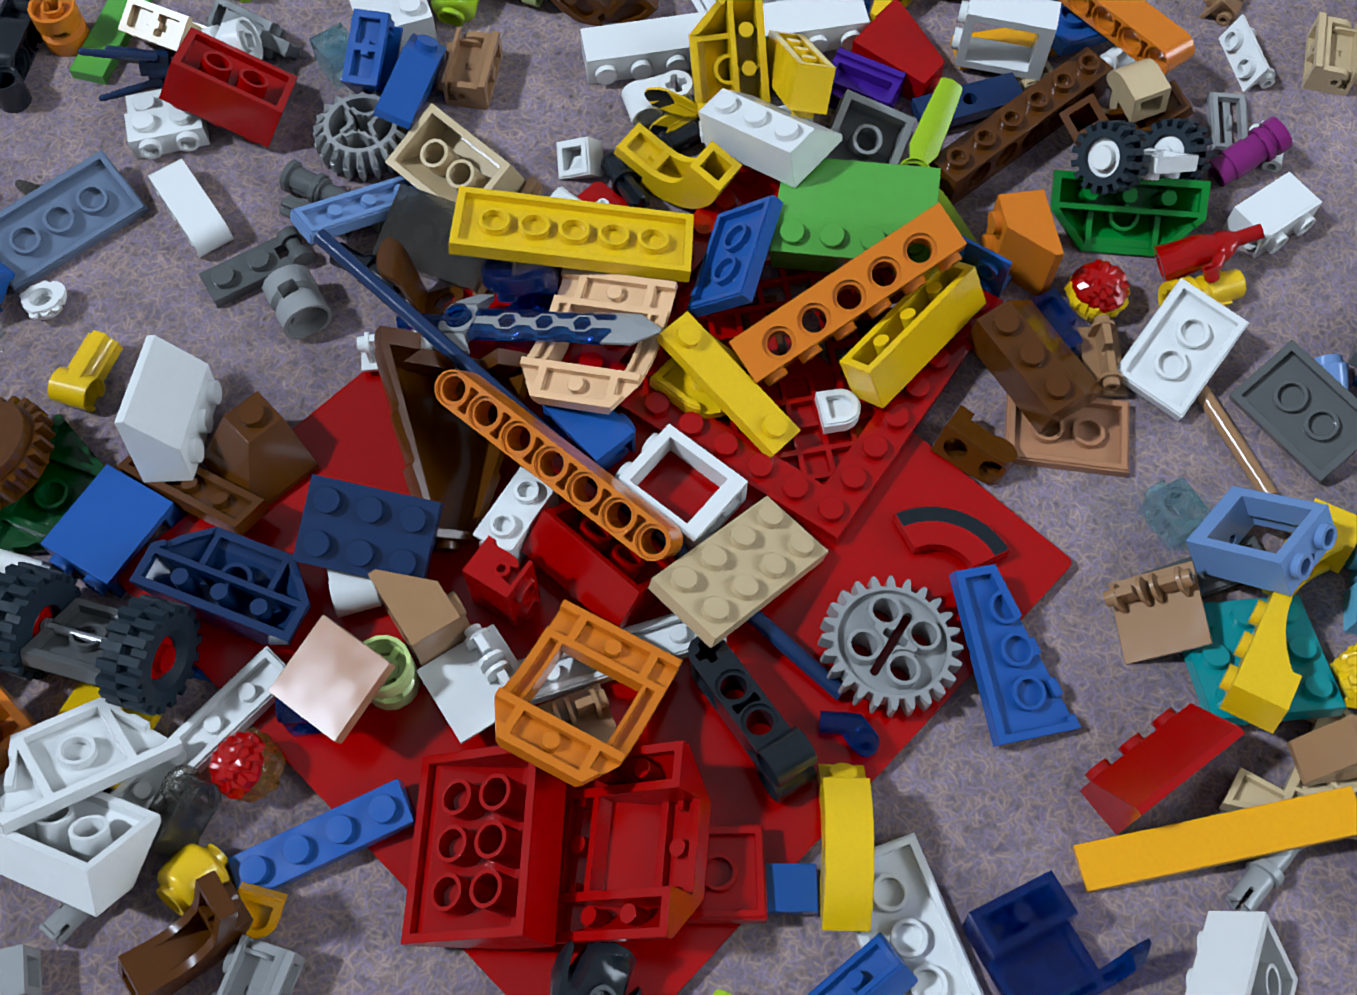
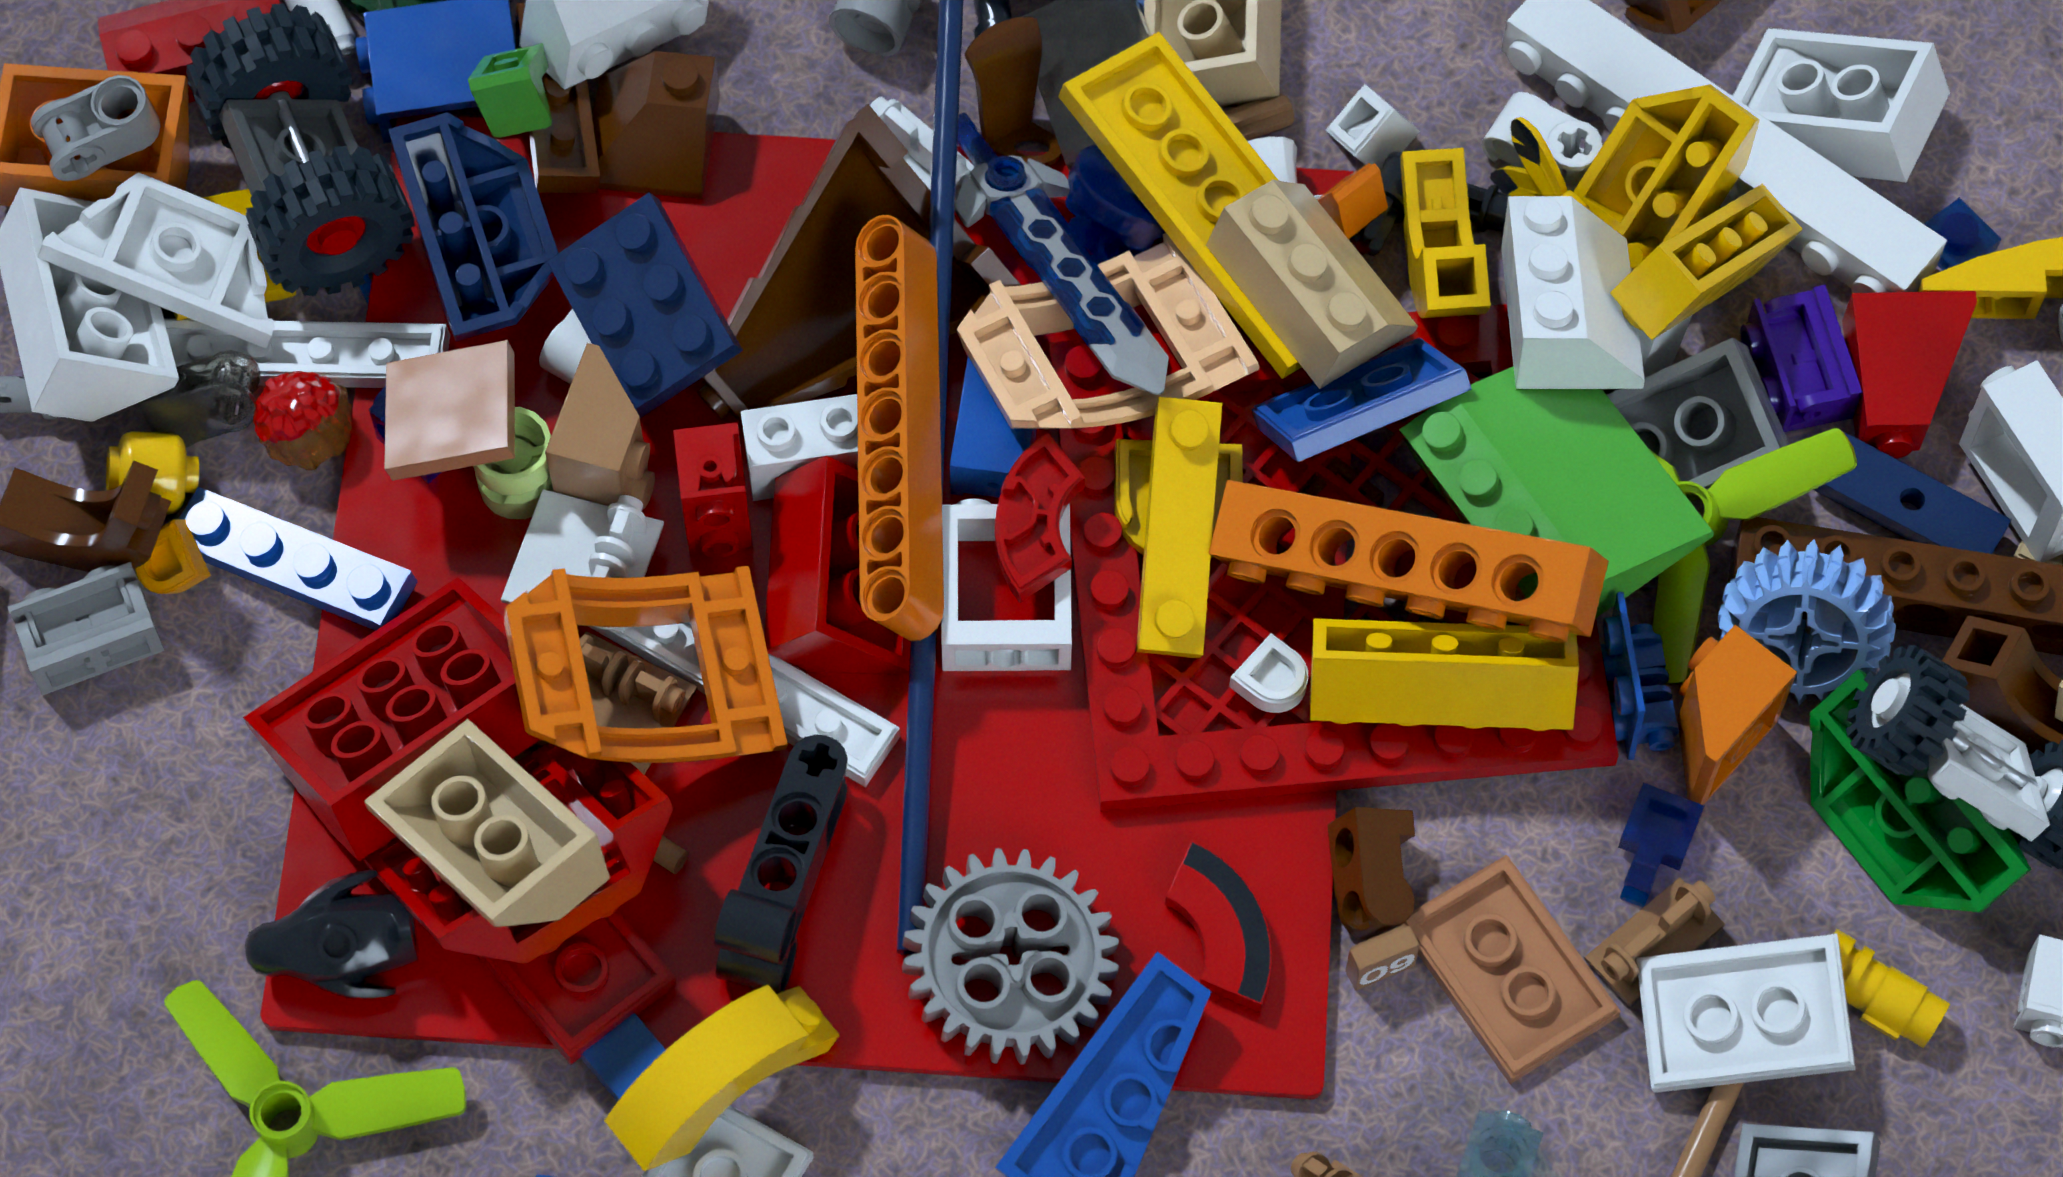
camera: 50 degrees right, 0 degrees up
(173, 499) = (512, 91): none -> bright green slope
(618, 185) = (1356, 200): none -> orange slope
(619, 854) = (491, 831): none -> tan slope
(658, 229) = (1307, 280): none -> tan slope
(663, 444) = (1031, 514): none -> red tile
(737, 571) = (953, 721): tan plate -> none
(853, 728) = (876, 994): clear blue arm -> none
(1005, 162) = (1844, 609): none -> light blue gear
(1023, 478) = (1382, 956): none -> medium nougat tile
(1032, 363) = (1557, 852): reddish brown slope -> none
(1098, 290) = (1749, 859): red piece -> none
(1202, 253) = (1922, 942): red piece -> none

